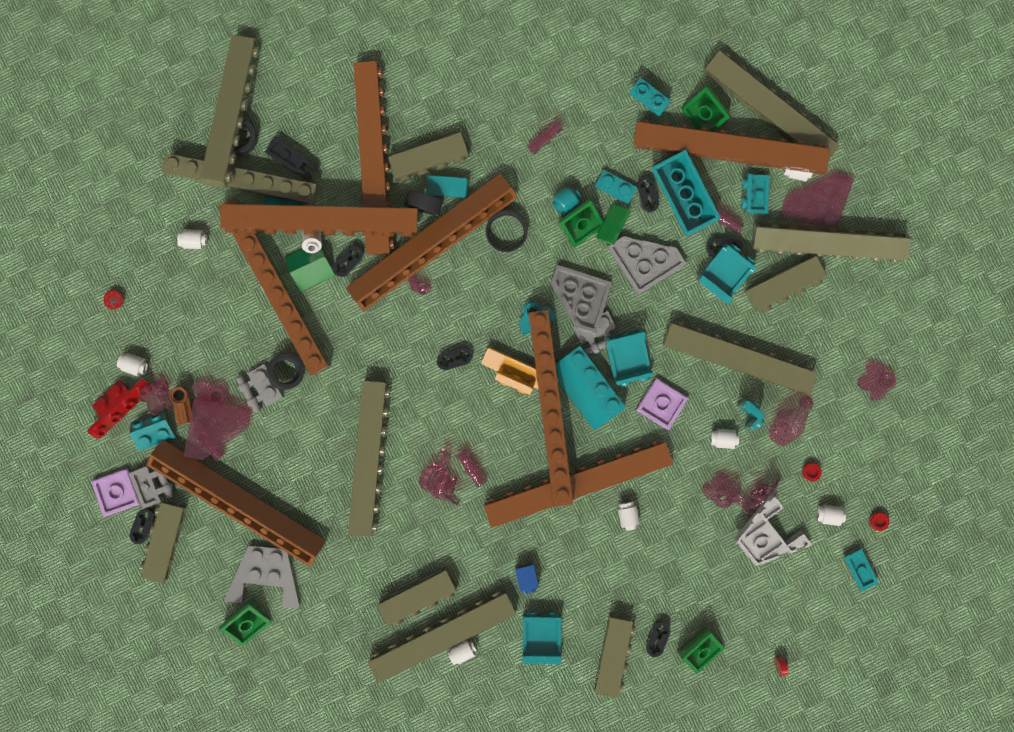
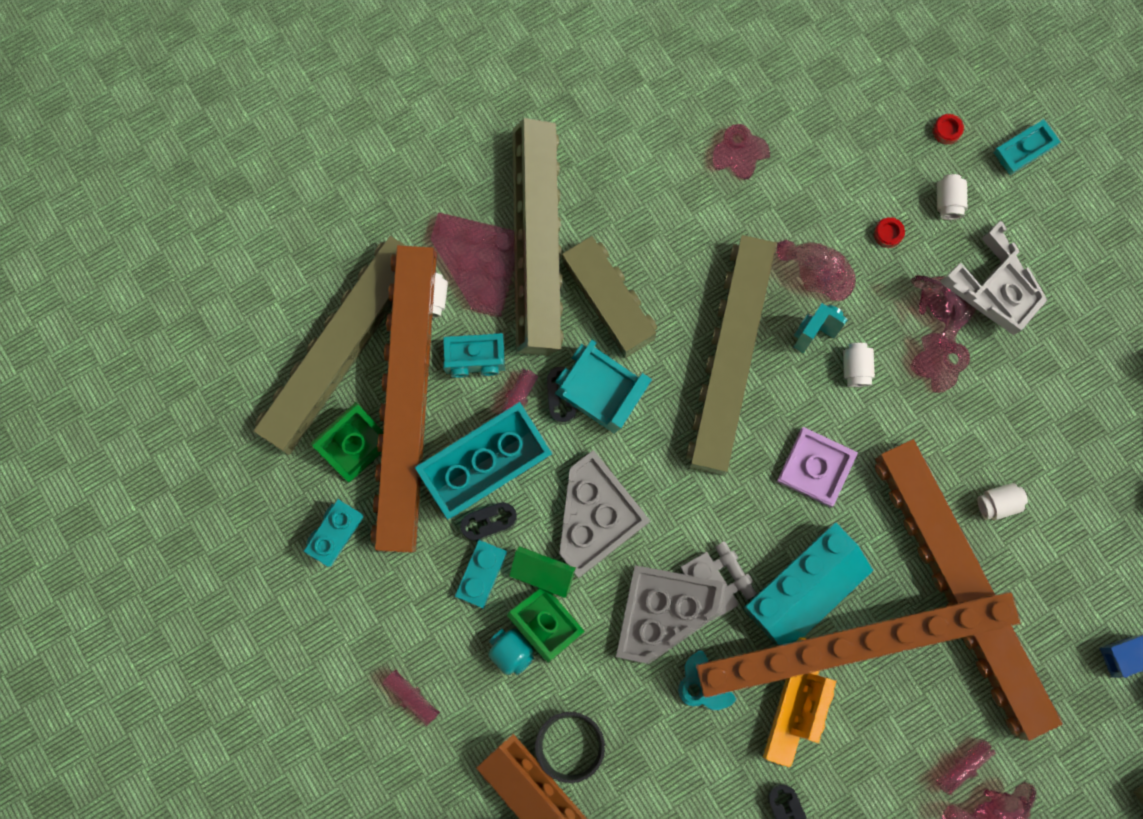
camera: 95 degrees left, 10 degrees down
(628, 357) = (752, 526): teal panel -> none

